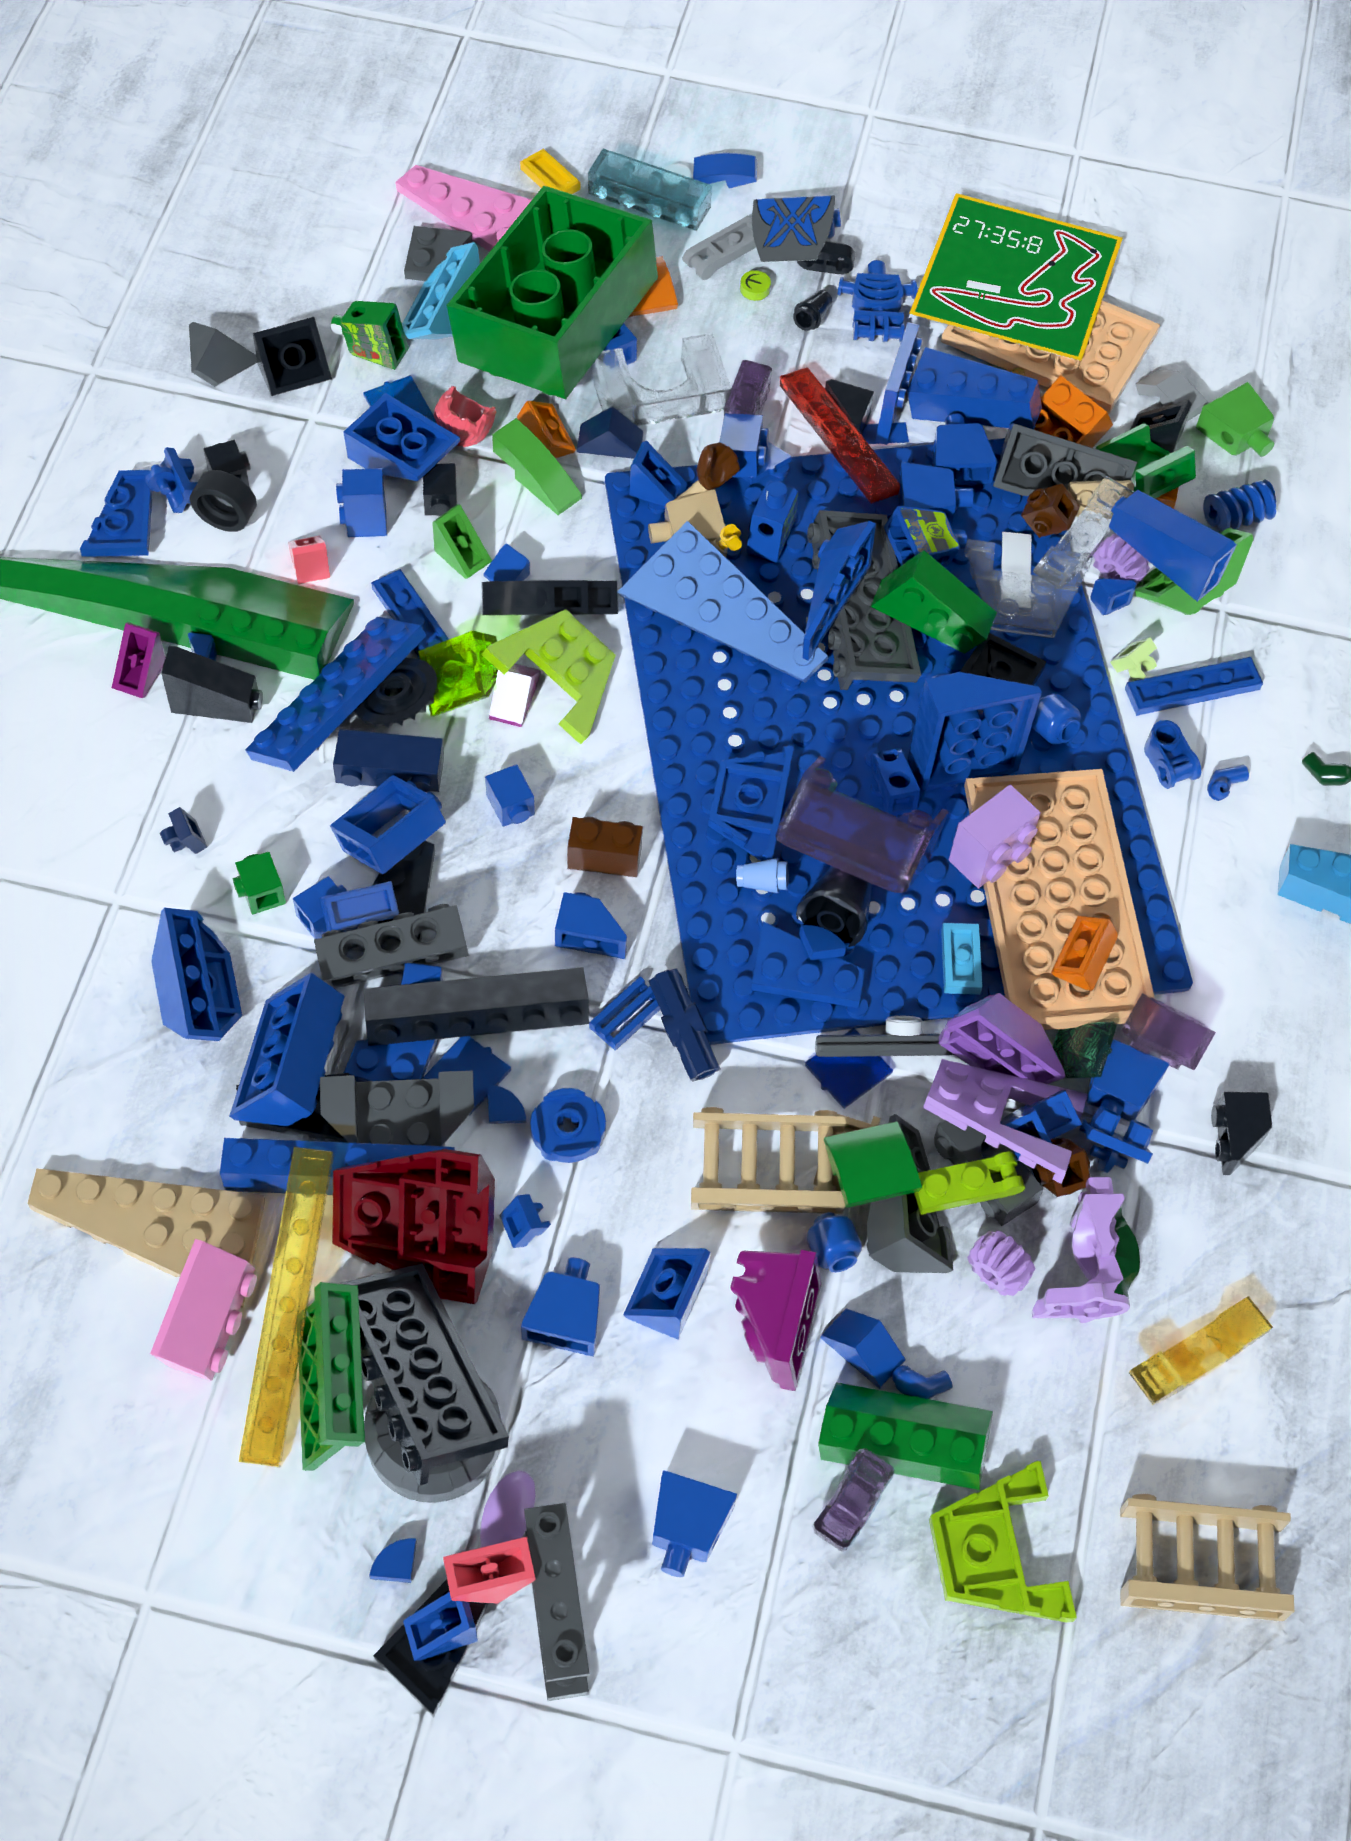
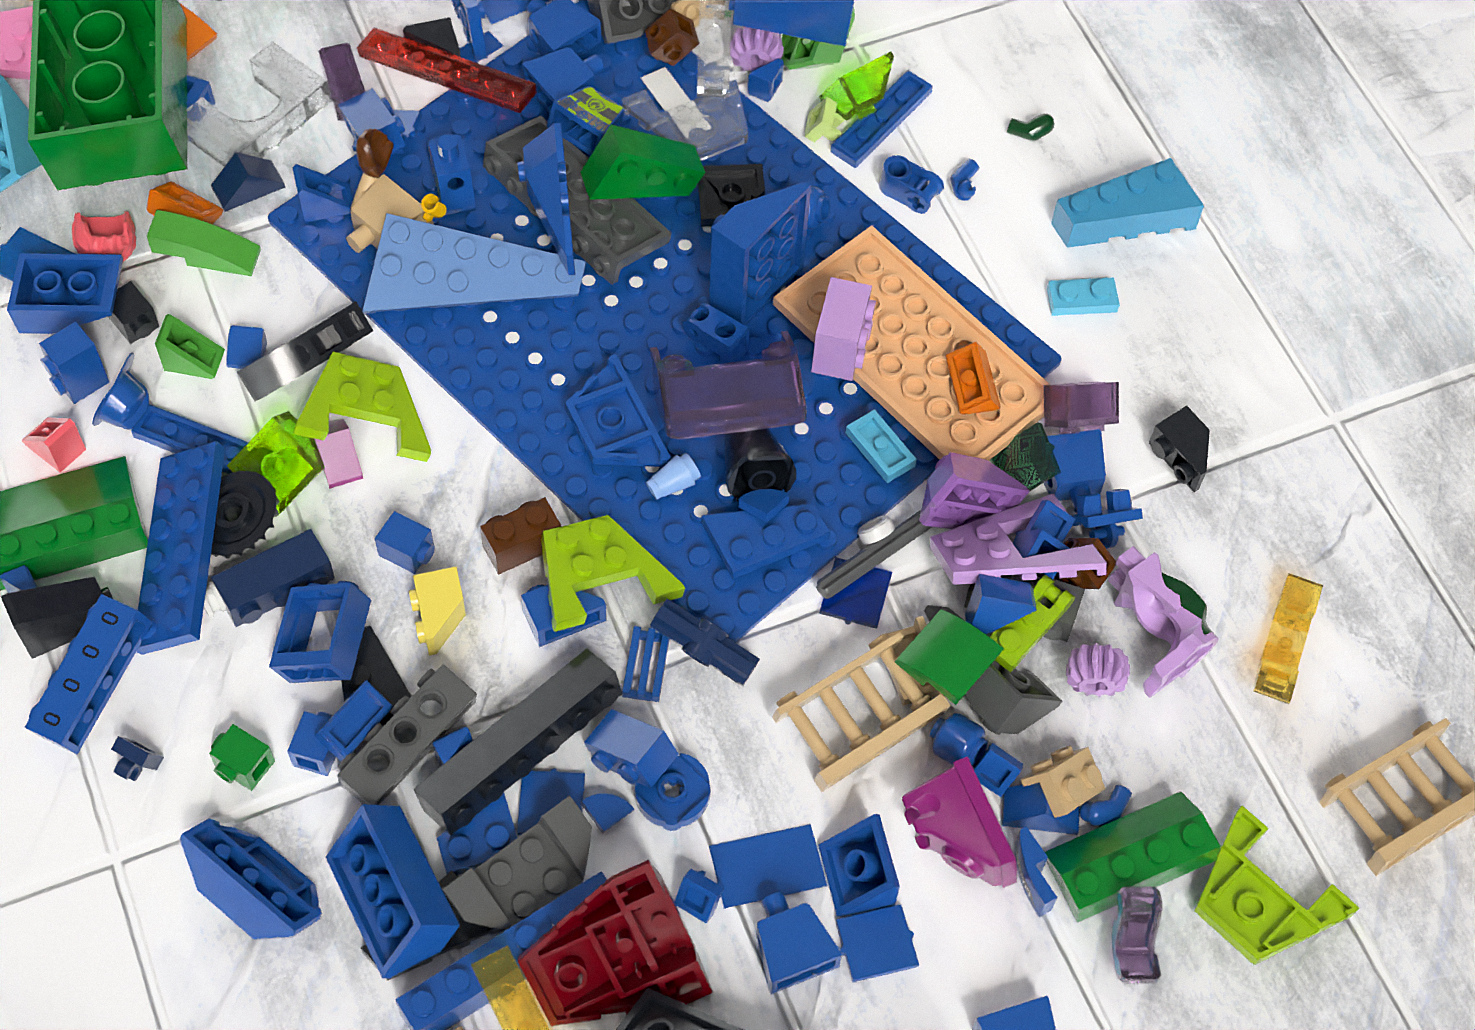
camera: 35 degrees left, 0 degrees up
(195, 747) = (88, 674): none -> blue brick
(381, 553) = (125, 400): none -> blue piece
(498, 862) = (440, 605): none -> light yellow slope
(554, 1069) = (630, 748): none -> blue brick
(601, 1236) = (768, 864): none -> blue sticker
(638, 1359) = (877, 943): none -> blue piece
(647, 898) = (596, 555): none -> lime wing
(814, 1384) = (1030, 864): none -> blue slope
(846, 1286) = (997, 769): none -> blue tile
(898, 1335) = (1066, 779): none -> tan bracket
(951, 1148) = (998, 602): none -> blue slope
(1186, 646) = (861, 88): none -> clear neon green slope
(1255, 944) = (1083, 296): none -> medium azure plate

